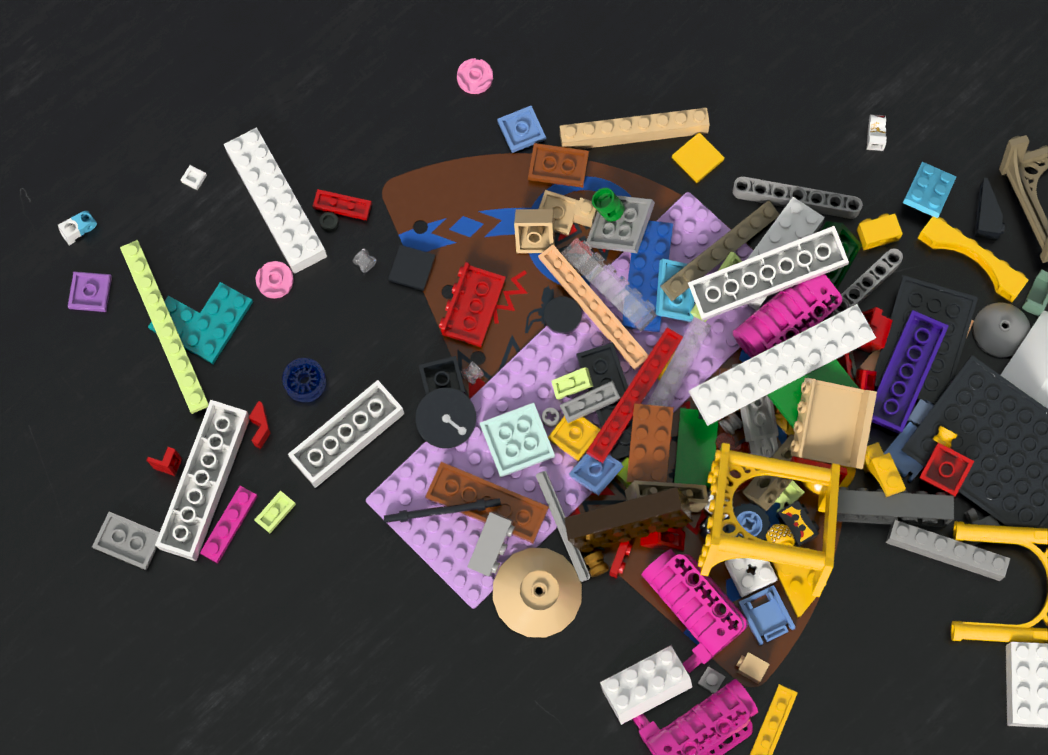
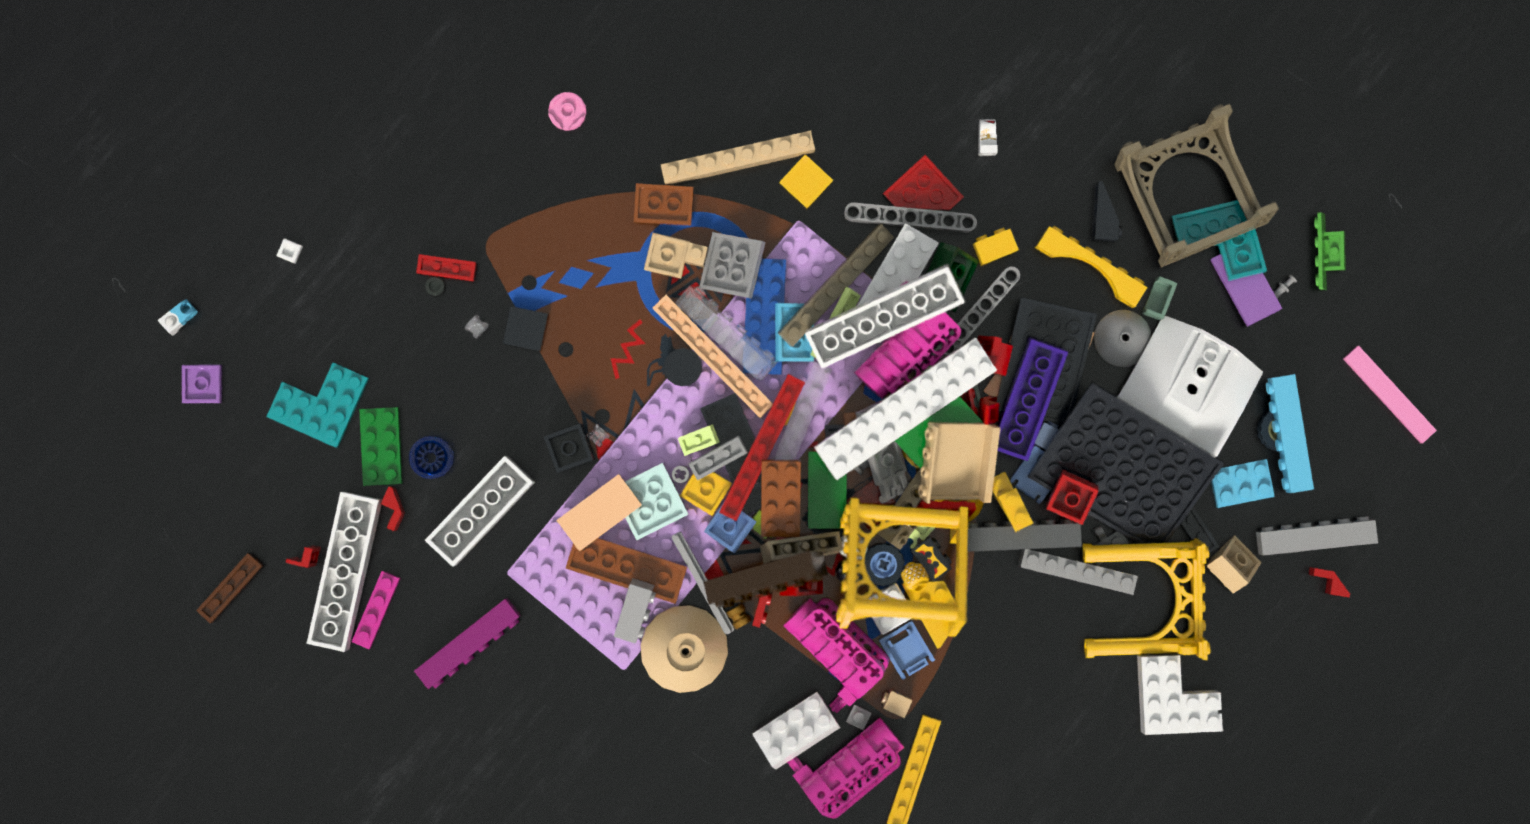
camera: 10 degrees left, 15 degrees up
(85, 488) = (229, 588): none -> reddish brown plate
(126, 540) = (278, 636): light grey plate -> none
(164, 327) = (282, 416): yellowish green plate -> none
(255, 366) = (381, 446): none -> green plate
(274, 279) = (387, 353): bright pink tile -> none
(275, 200) = (376, 270): white brick -> none
(275, 512) = (419, 594): yellowish green plate -> none
(317, 565) = (467, 643): none -> magenta brick
(404, 516) = (547, 588): black bar -> none
(445, 418) = (573, 482): black piece -> none
(465, 443) = (599, 512): none -> light nougat tile
(472, 305) = (590, 363): red bracket -> none
(521, 129) = (621, 167): medium blue plate -> none
(534, 230) = (645, 279): tan slope -> none
(608, 204) = (717, 249): green wheel -> none
(724, 438) = (854, 482): clear red tile -> none
(812, 170) = (923, 188): none -> red plate
(929, 190) = (1044, 197): medium azure plate -> none
(945, 437) = (1069, 465): yellow wheel -> none

